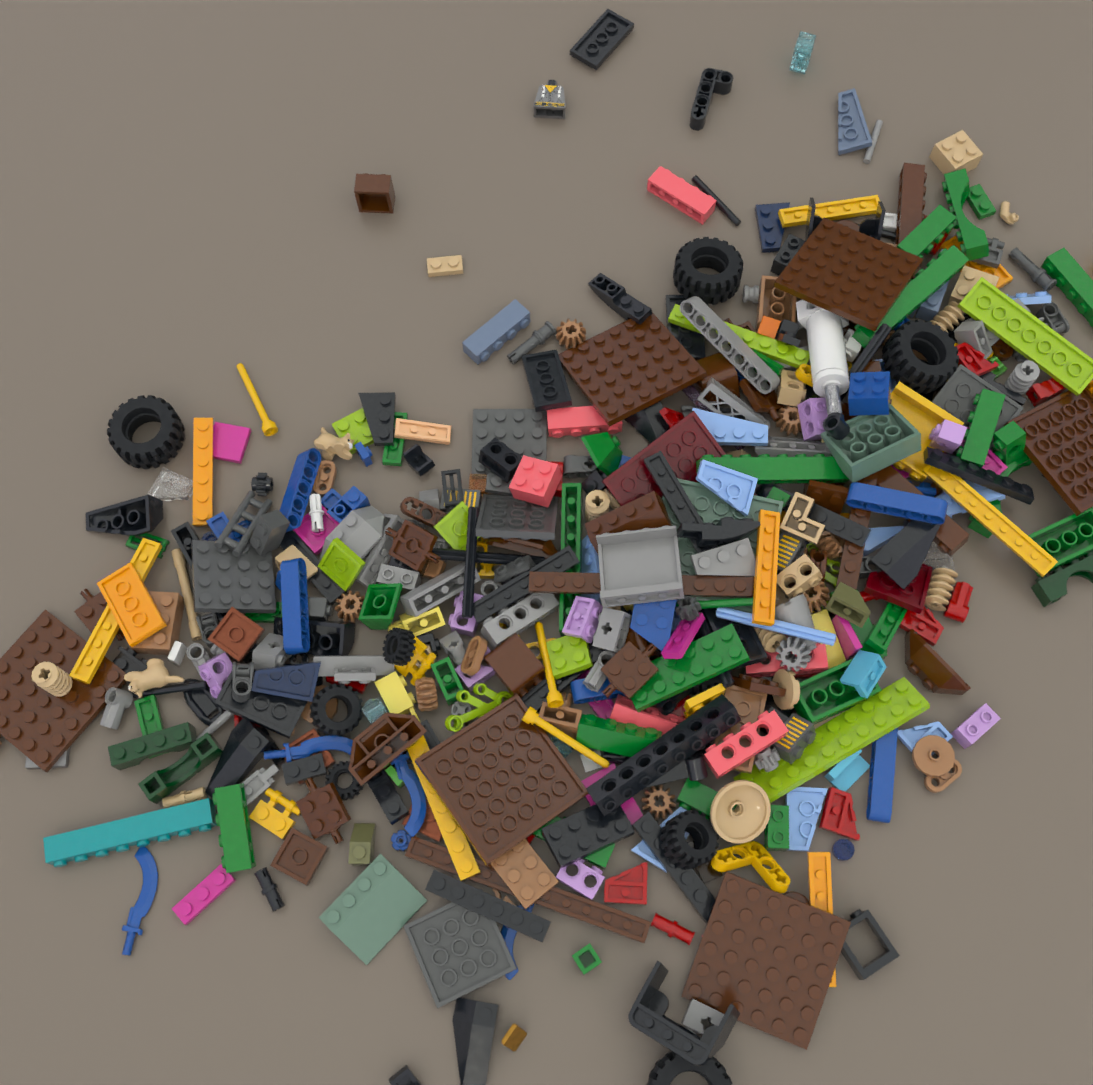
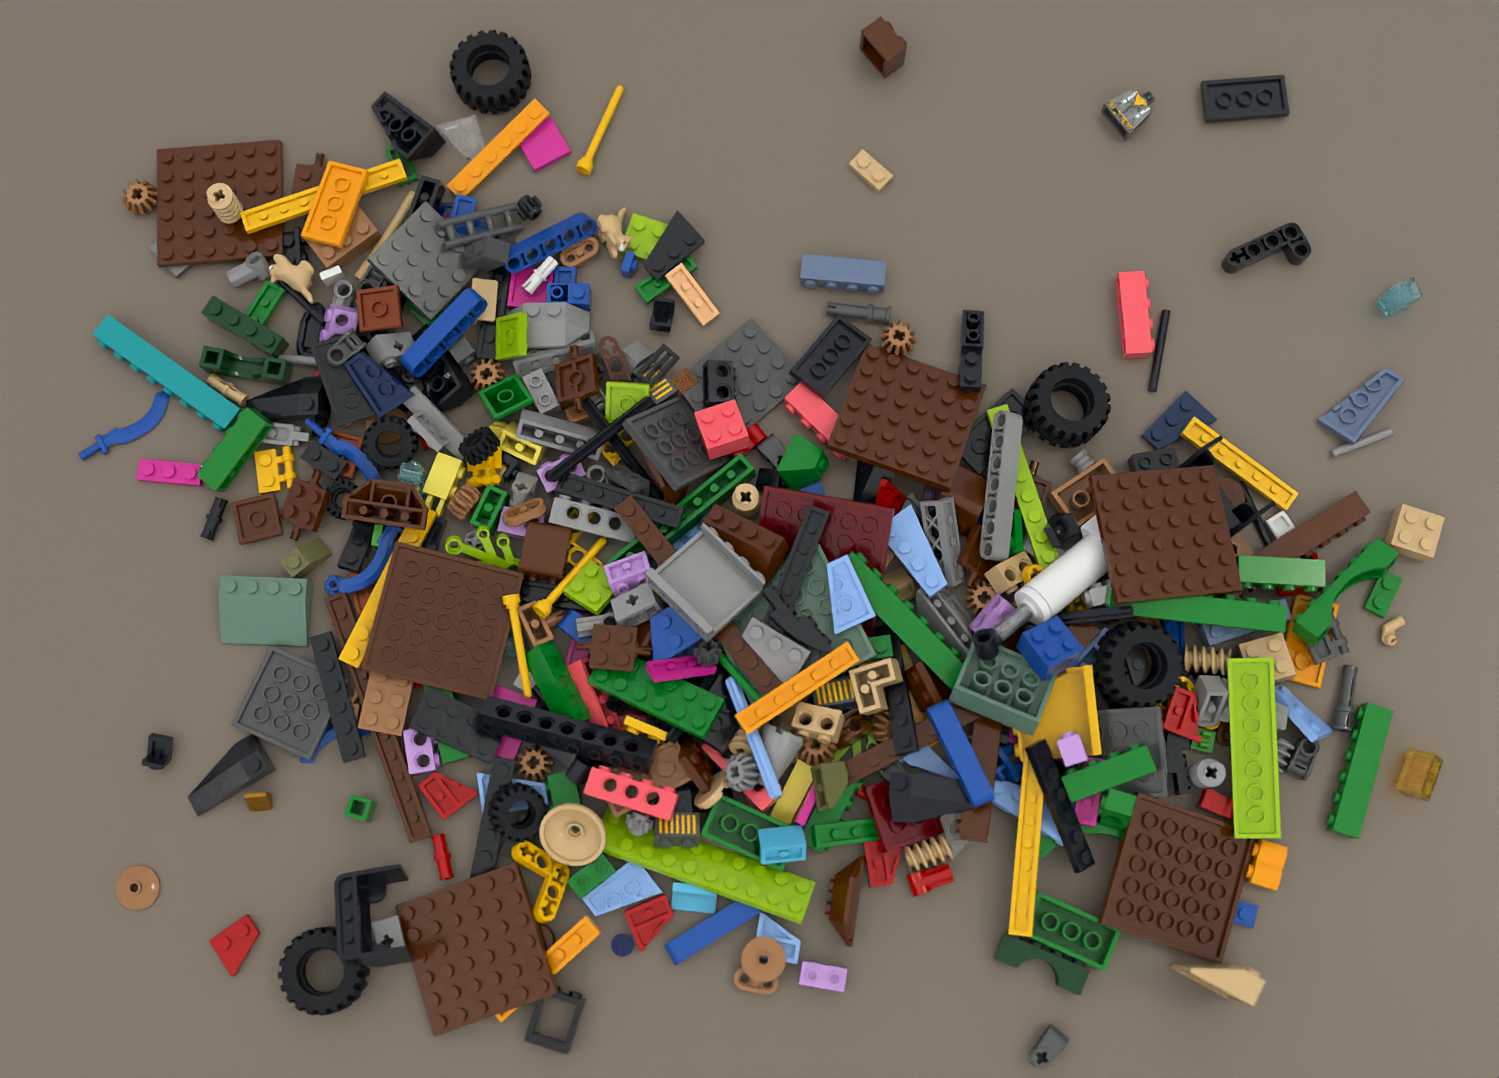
camera: 50 degrees right, 10 degrees up
(768, 326) = (1053, 505): orange tile -> none

